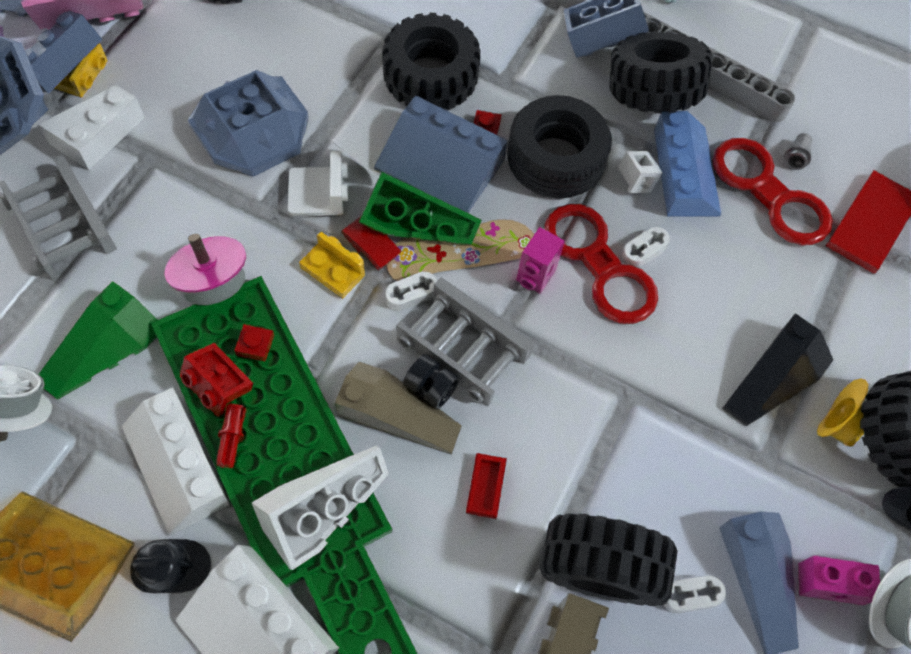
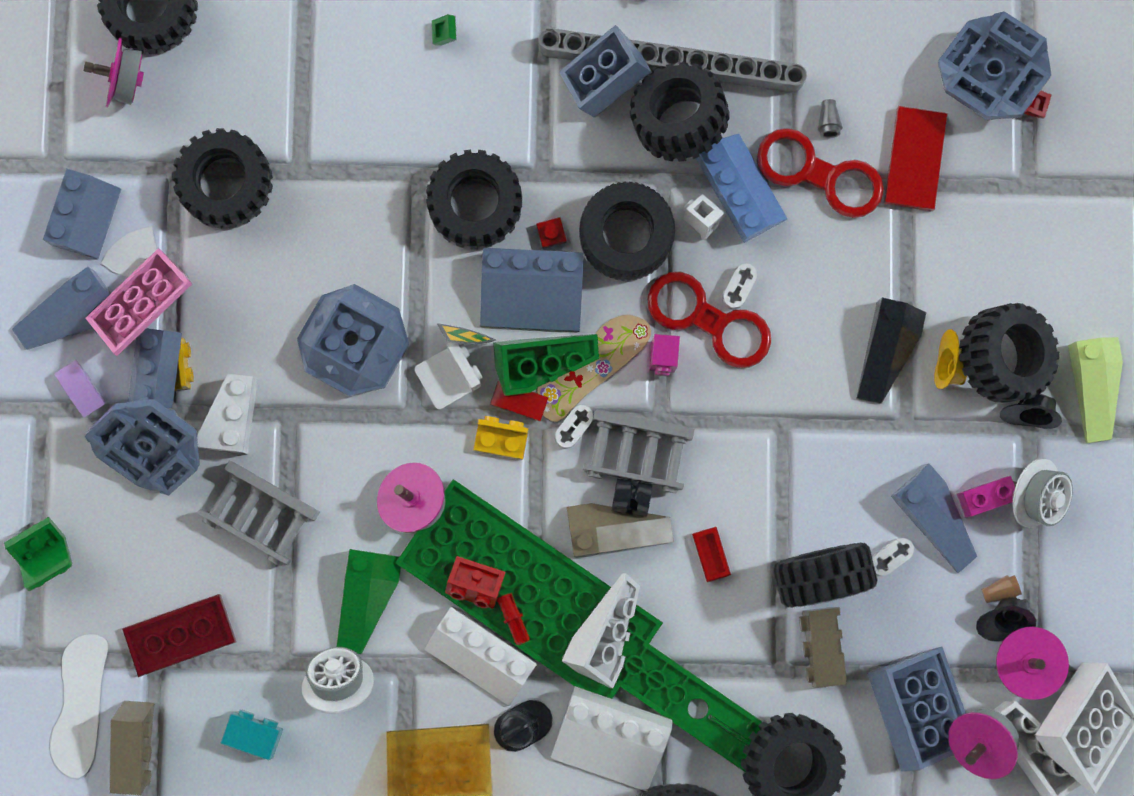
camera: 25 degrees left, 20 degrees up
(254, 343) = (484, 538): red plate -> none

